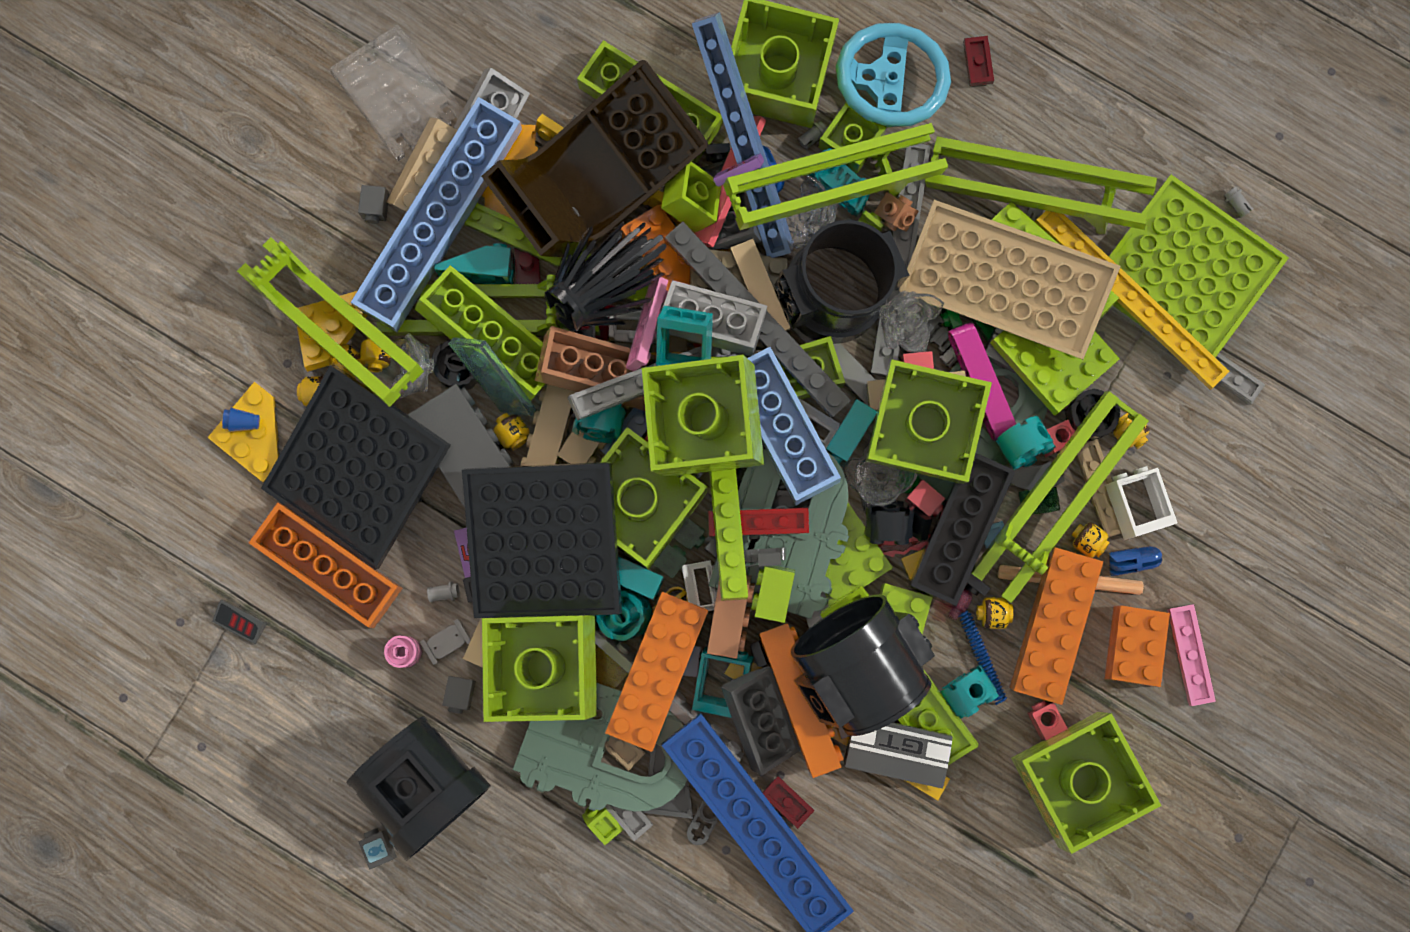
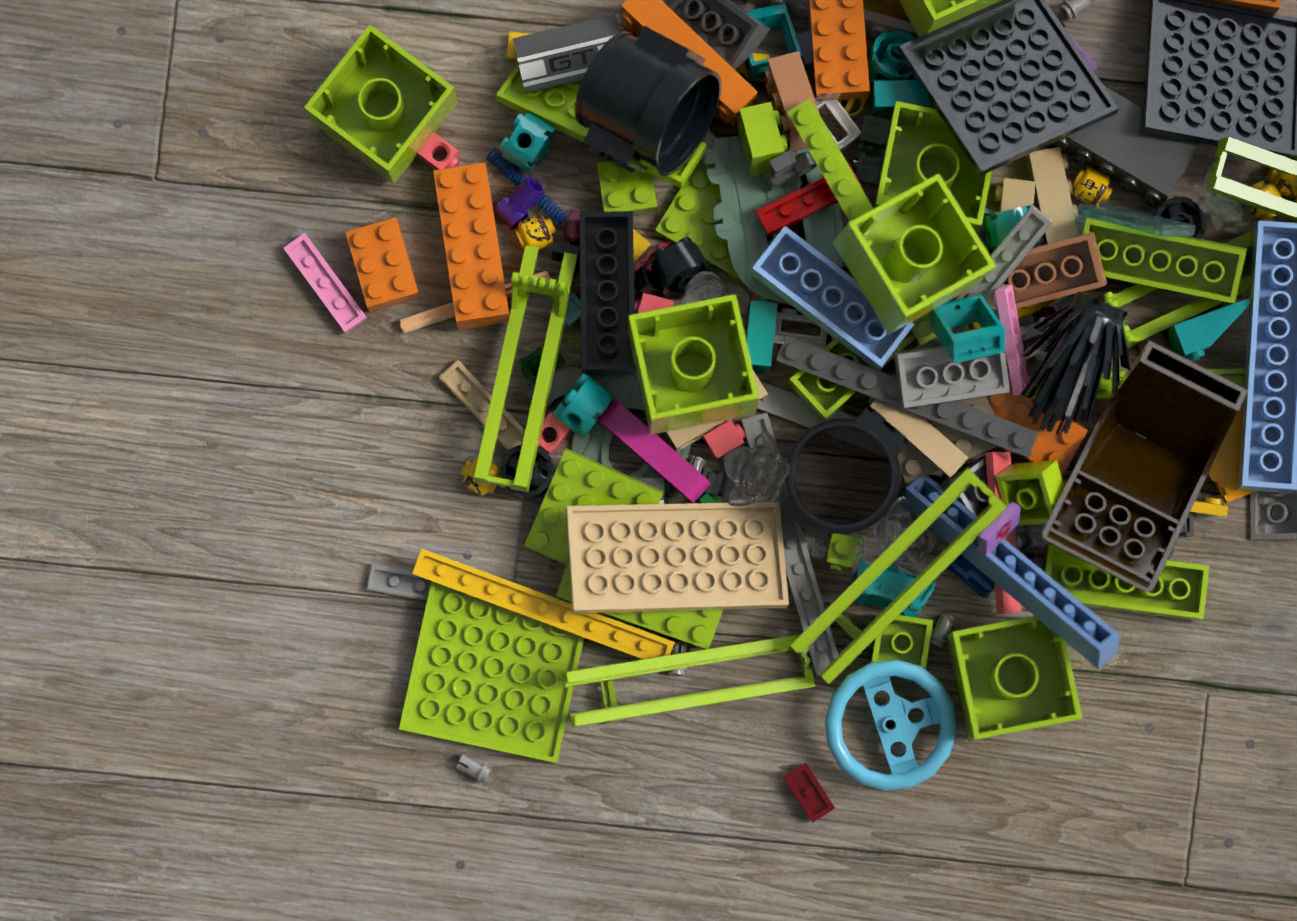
camera: 155 degrees right, 0 degrees up
(901, 212) = (819, 582): nougat brick -> none
(1000, 643) = (516, 205): none -> dark purple piece
(1090, 540) = (473, 347): yellow head -> none
(1134, 560) = (421, 348): blue arm -> none
(1158, 498) = (420, 387): white window -> none

